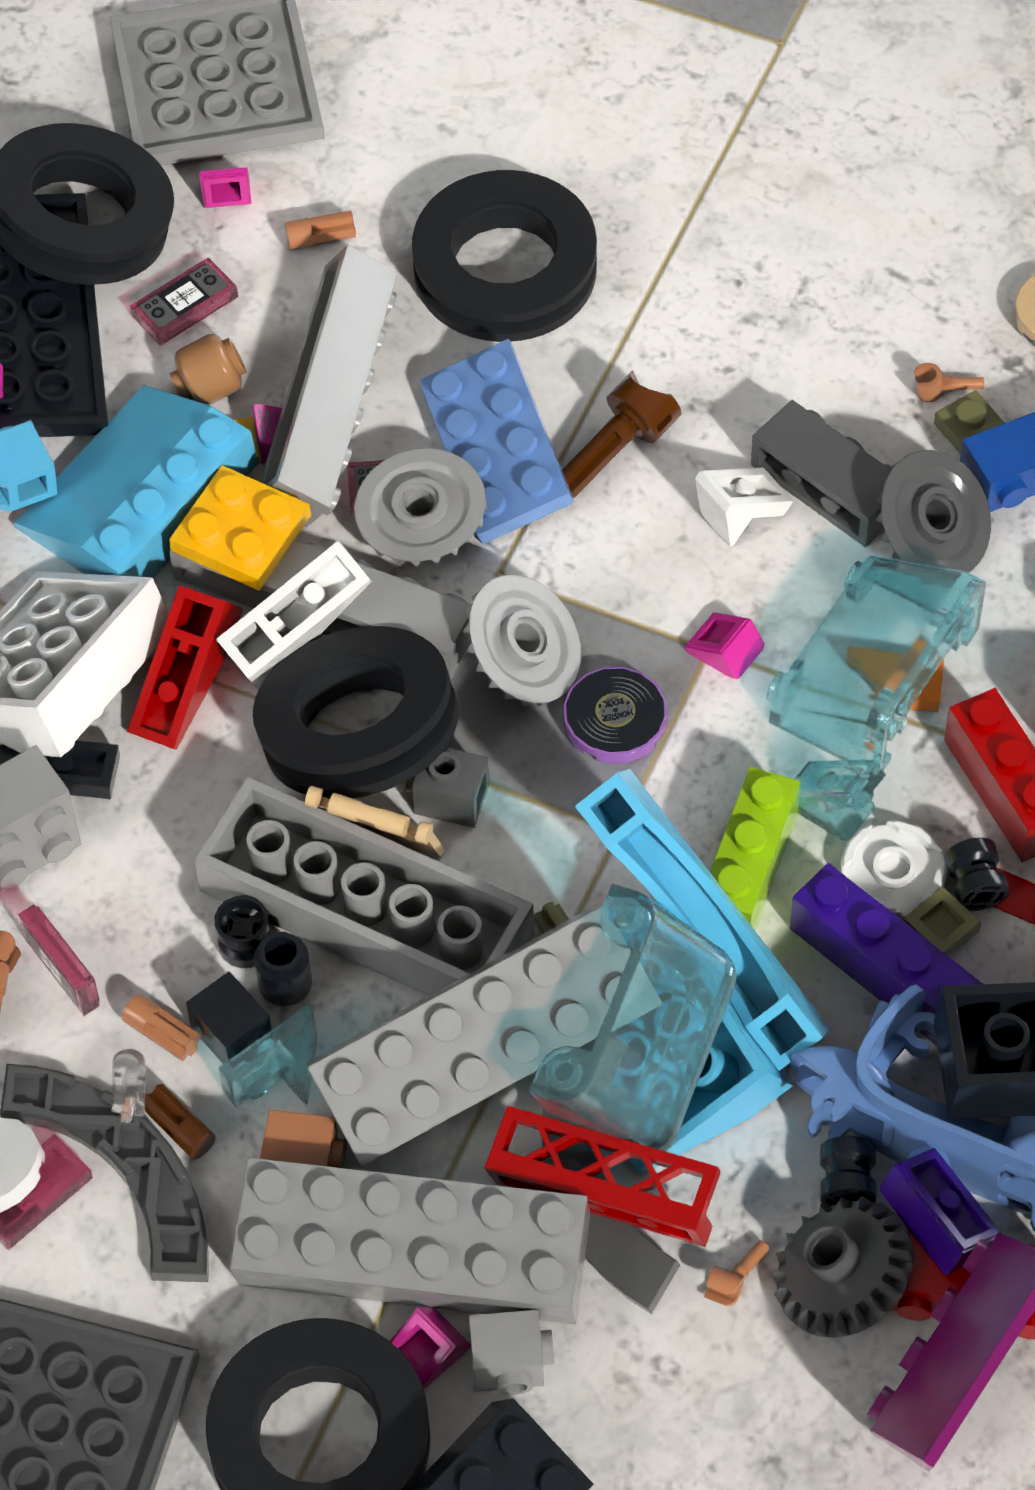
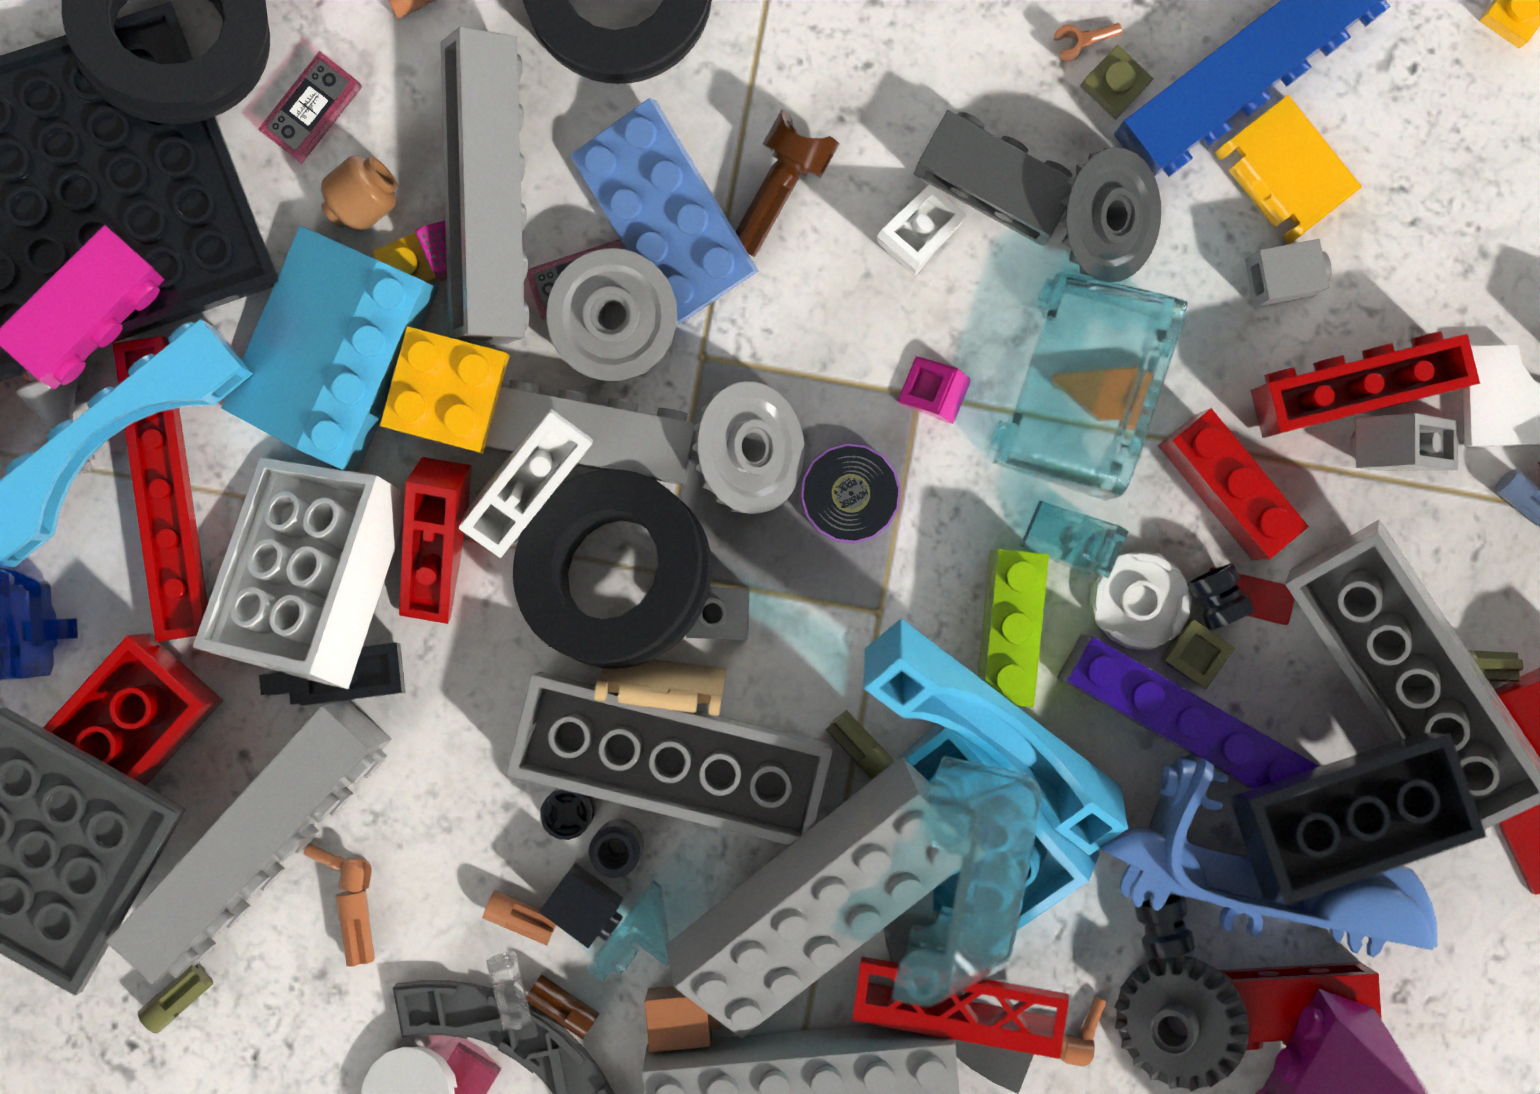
camera: 20 degrees left, 30 degrees up
(59, 959) = (408, 878): clear pink tile -> none
(937, 1209) = (1264, 970): dark purple slope -> none

